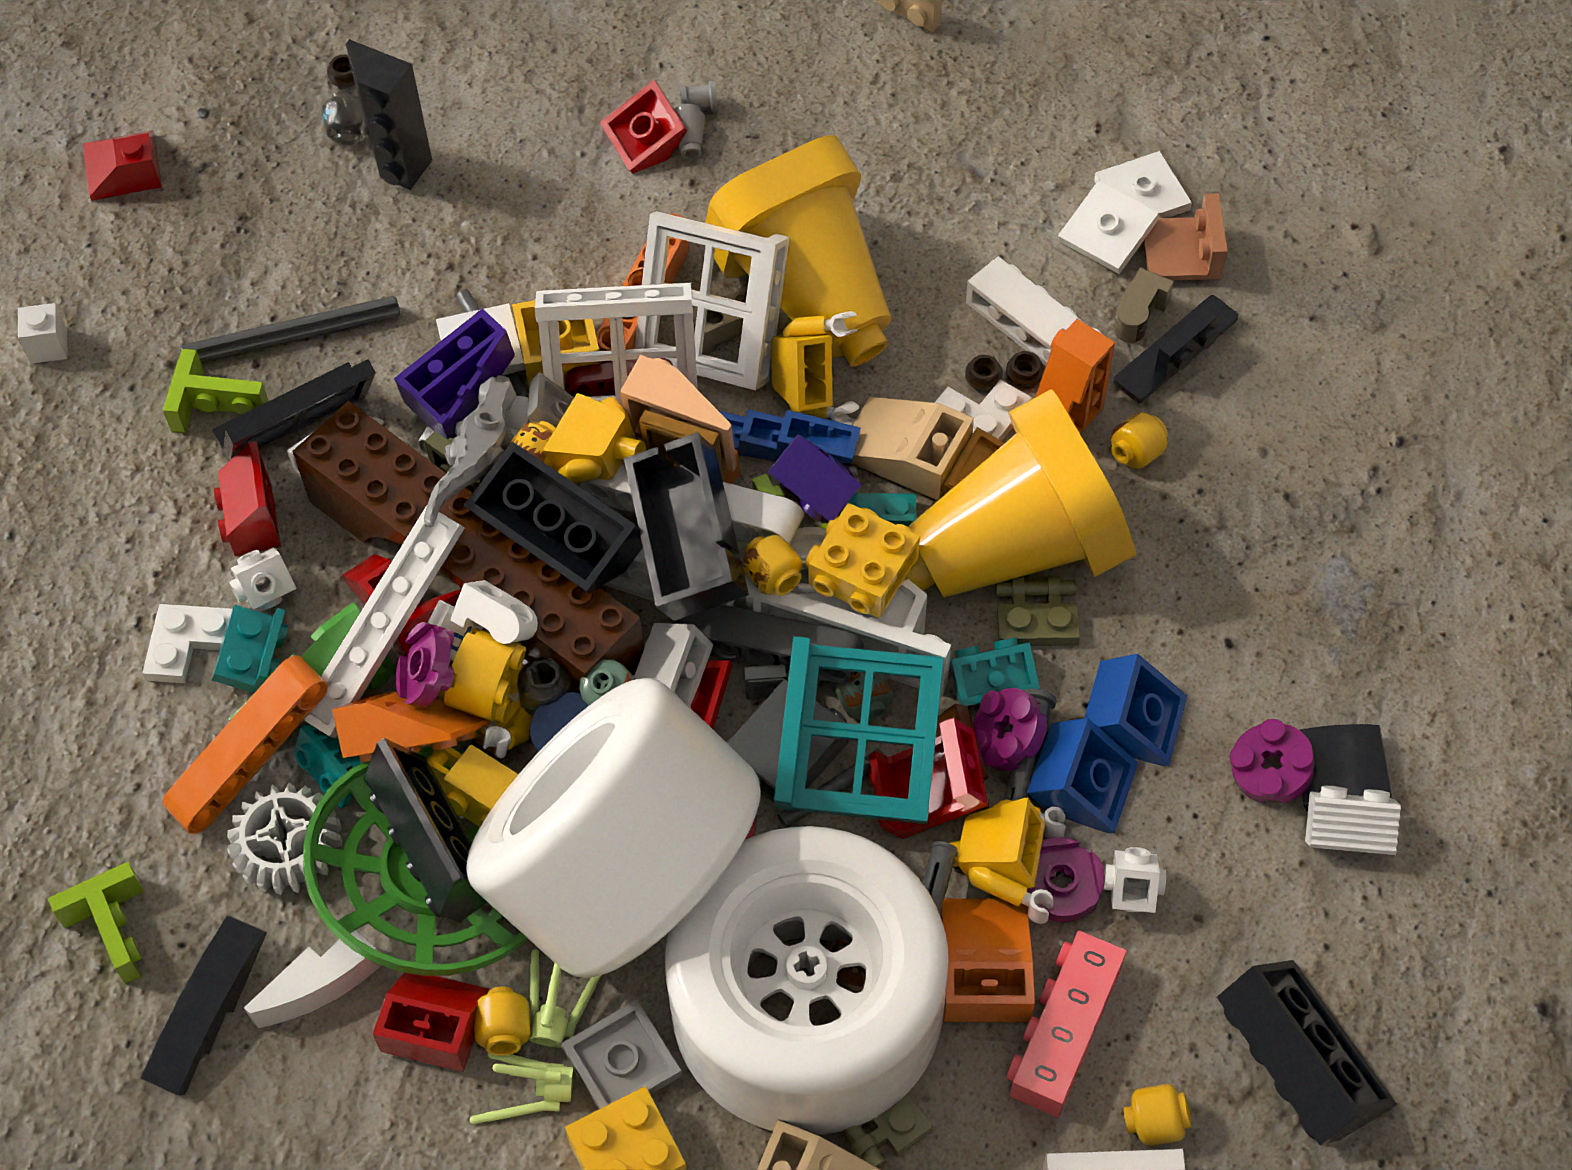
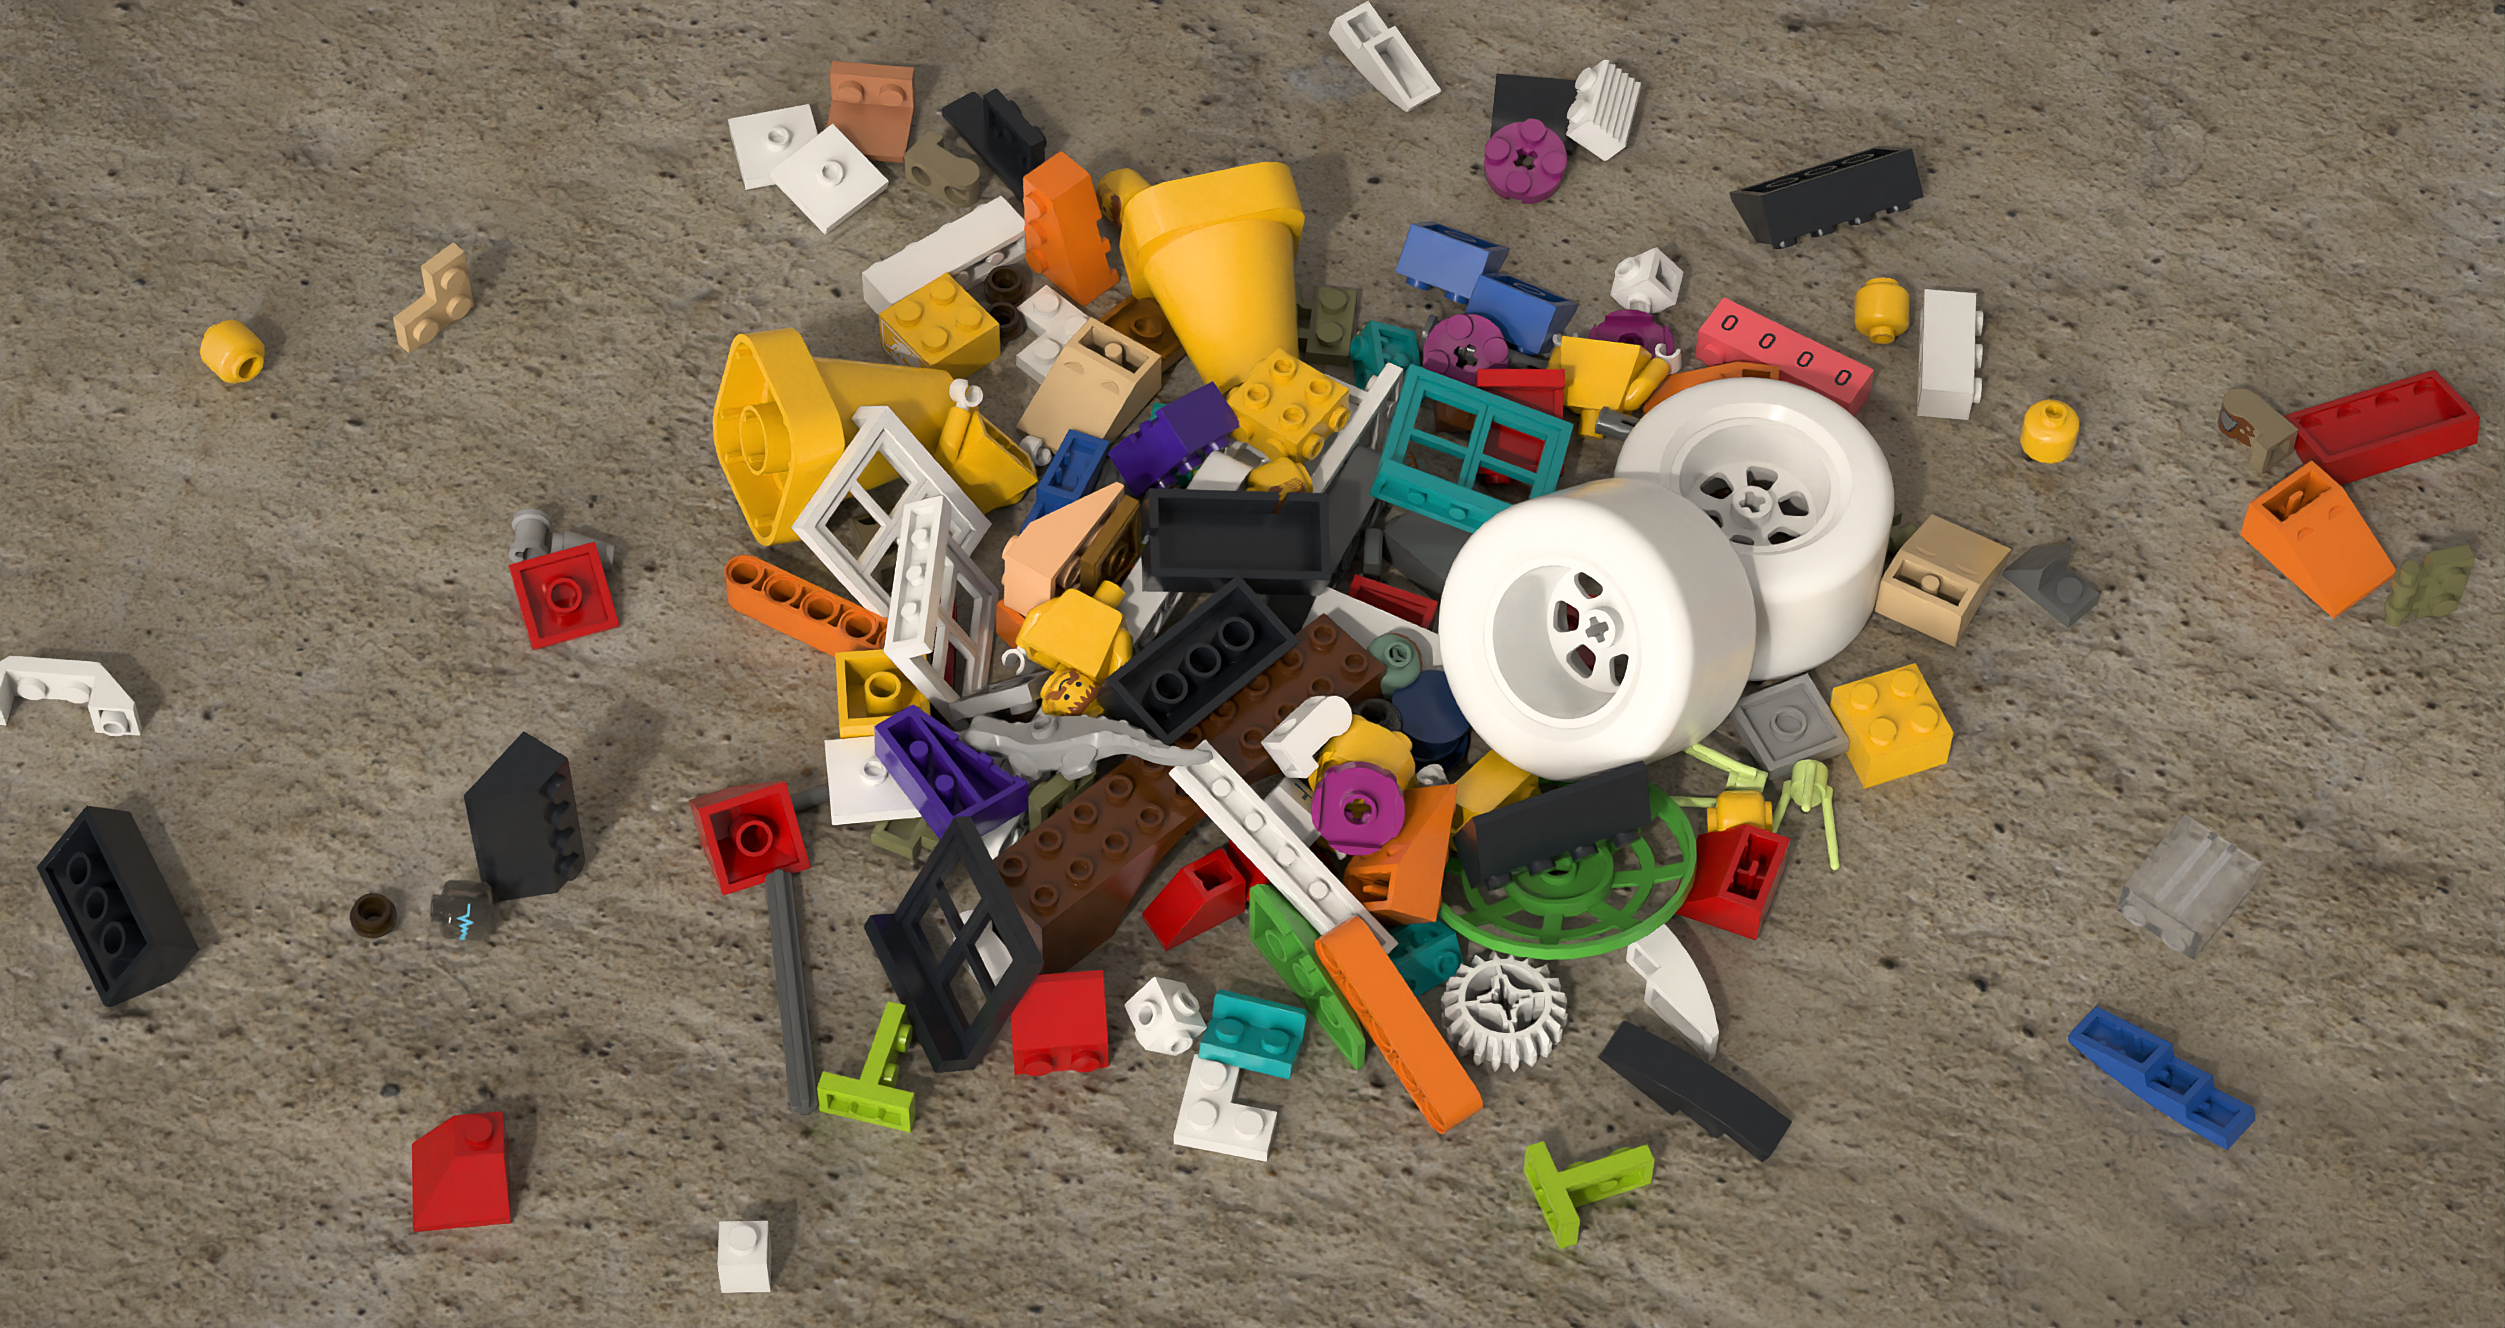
camera: 85 degrees left, 5 degrees down
(424, 271) = (749, 834): none -> red slope
(952, 325) = (940, 330): none -> yellow brick
(1372, 628) = (1383, 57): none -> white slope

